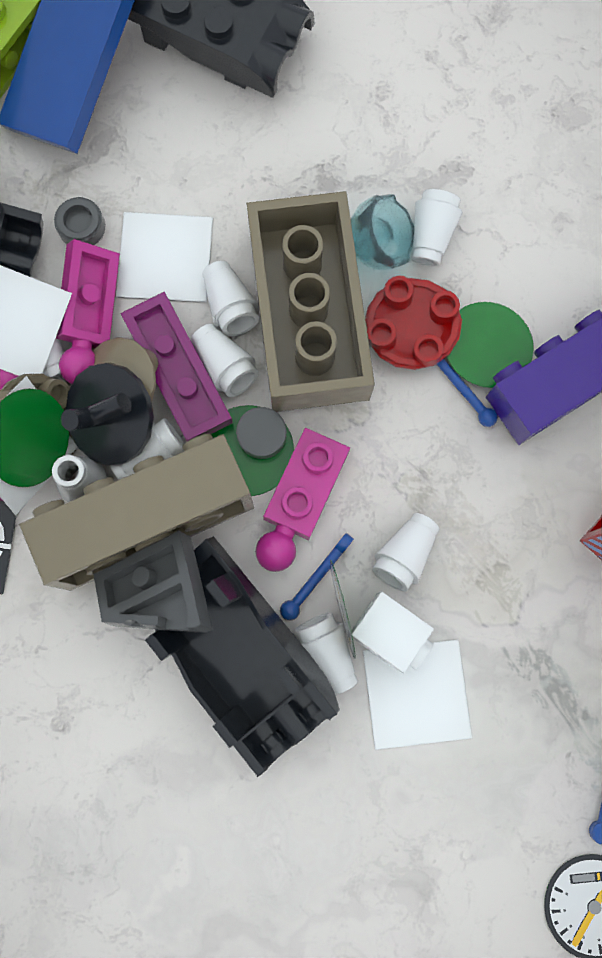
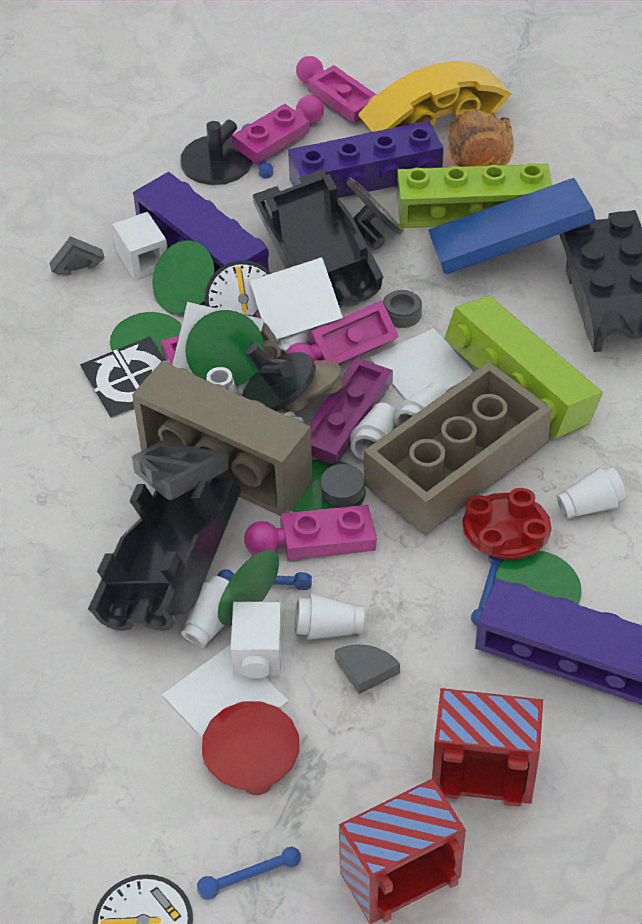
camera: 60 degrees right, 30 degrees down
(236, 168) = (490, 333): none -> lime brick
(382, 232) = (553, 461): clear light blue hair -> none
(475, 551) = (366, 665): none -> dark grey tile
(491, 708) = (250, 746): none -> red dish

